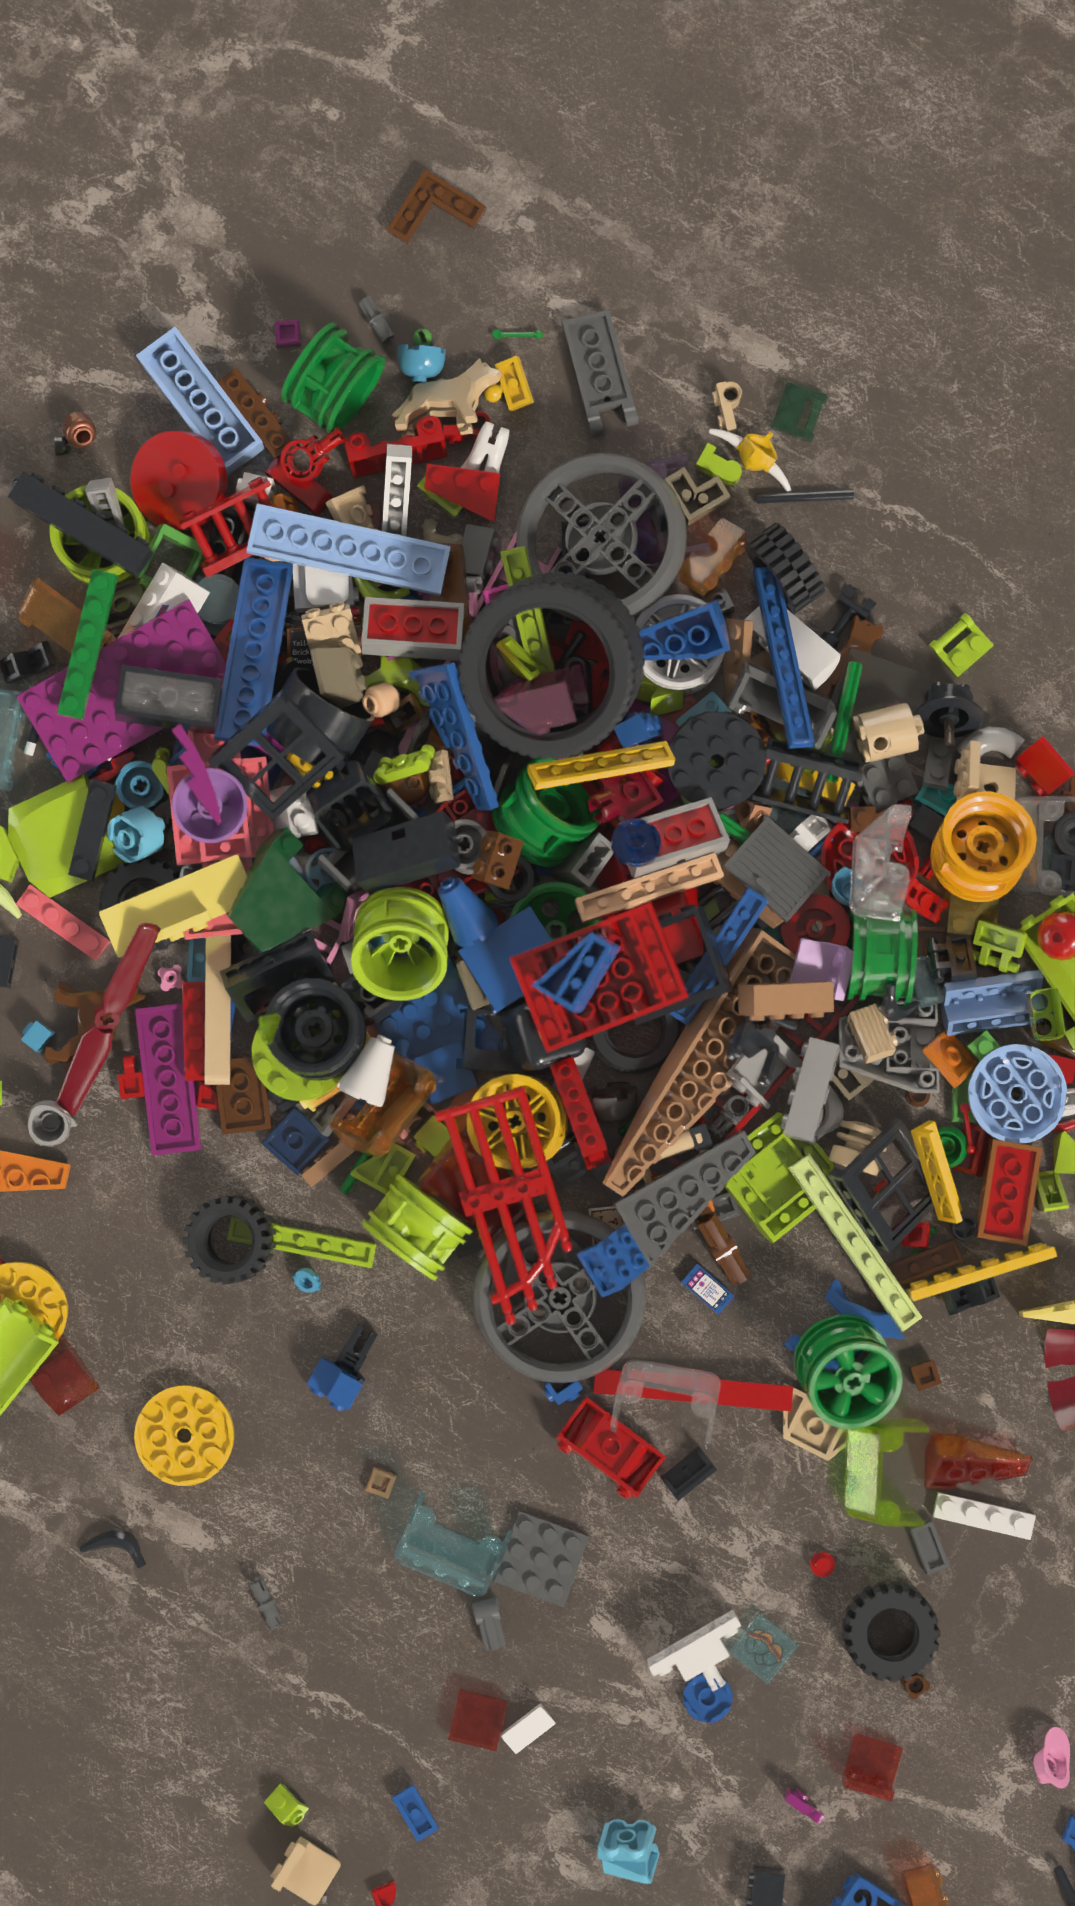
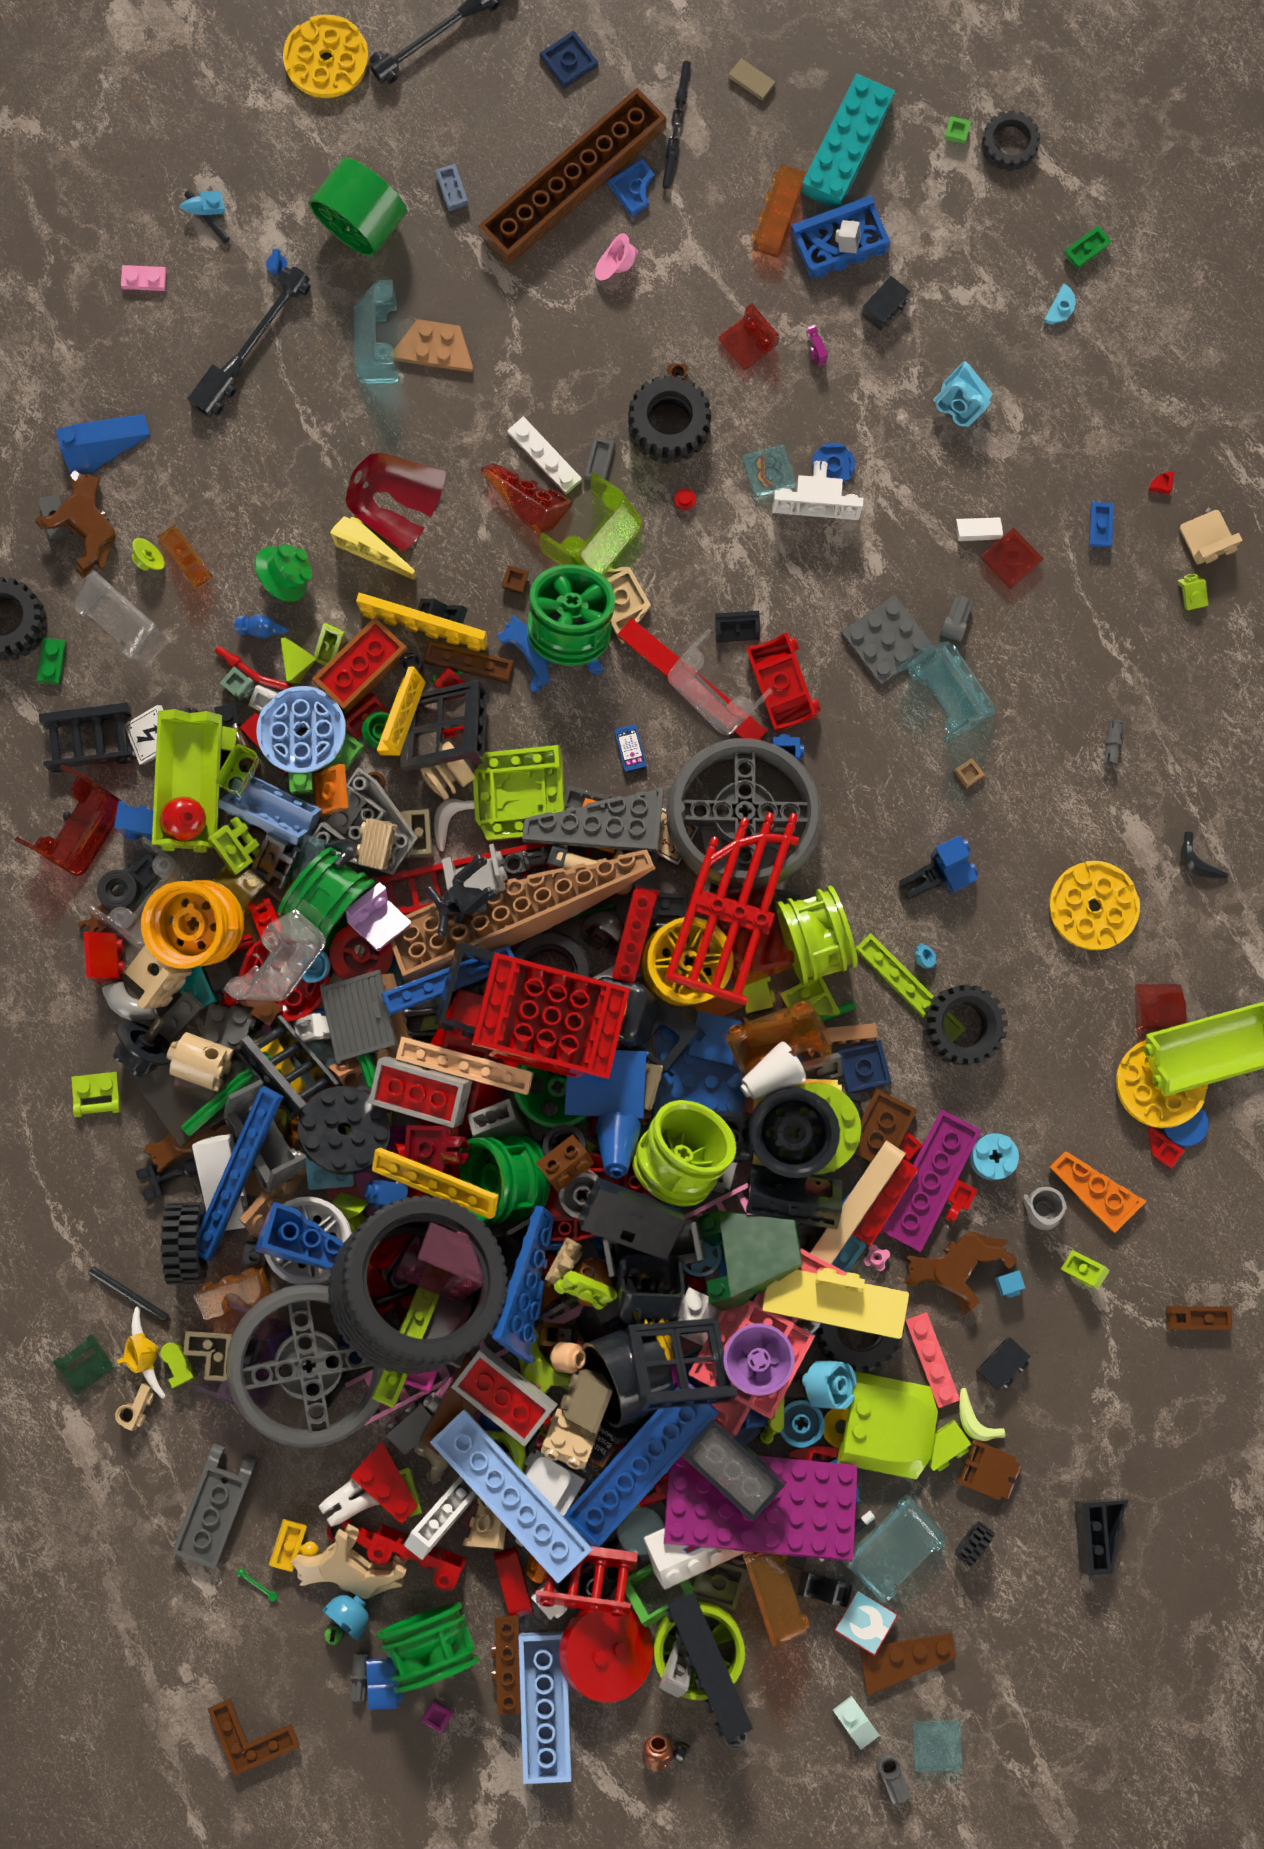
camera: 150 degrees left, 5 degrees down
(87, 644) = (768, 1561): green plate -> none
(92, 830) = (862, 1412): black plate -> none
(97, 1040) = (965, 1245): dark red piece -> none
(110, 1138) = (1006, 1151): none -> medium azure brick
(200, 783) = (754, 1379): magenta slope -> none
(268, 1027) = (829, 1153): clear neon green slope -> none
(322, 447) = (474, 1596): red pin -> none
(351, 319) = (379, 1685): none -> blue brick
(351, 908) = (699, 1210): bright pink tile -> none
(518, 659) = (440, 1313): lime slope -> none
(579, 973) = (564, 1026): blue wedge -> none
(614, 1261) = (686, 806): blue bracket -> none
(636, 842) = (450, 1104): clear blue tile -> none
(723, 1249) = (598, 767): reddish brown piece -> none
(786, 998) = (422, 910): medium nougat brick -> none
(811, 1090) = (450, 833): light grey wedge -> none
(855, 1242) = (498, 706): yellowish green tile -> none
(964, 1107) = (347, 748): red hinge -> none

